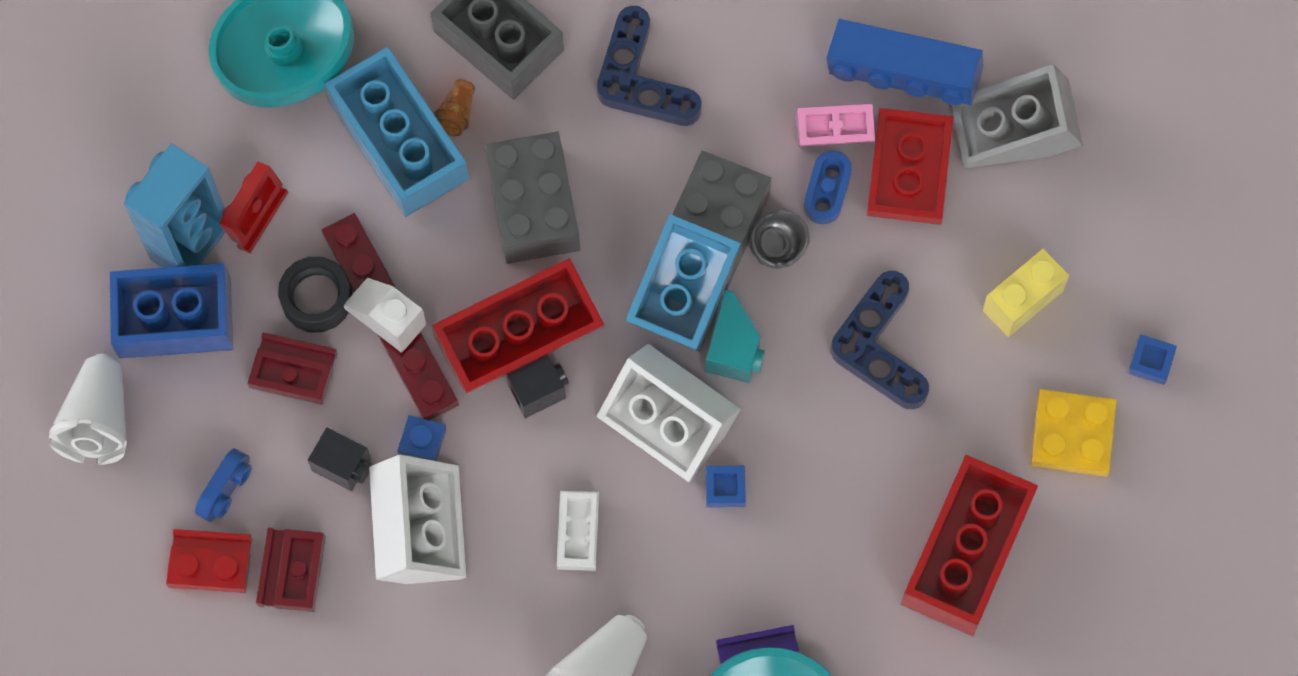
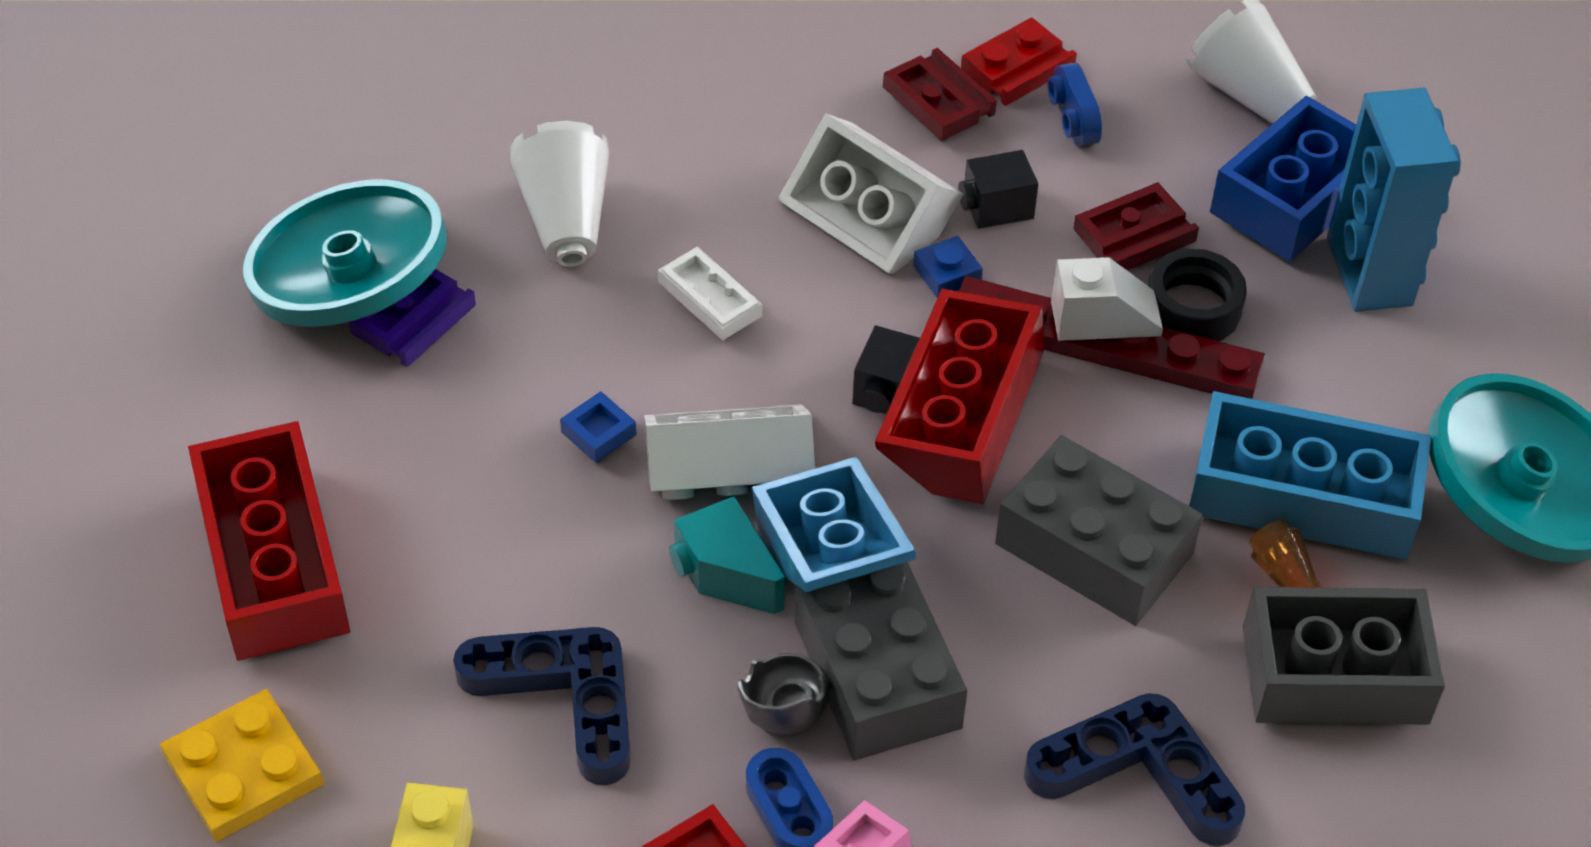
camera: 135 degrees right, 20 degrees down
(253, 207) = (1347, 309): red plate -> none

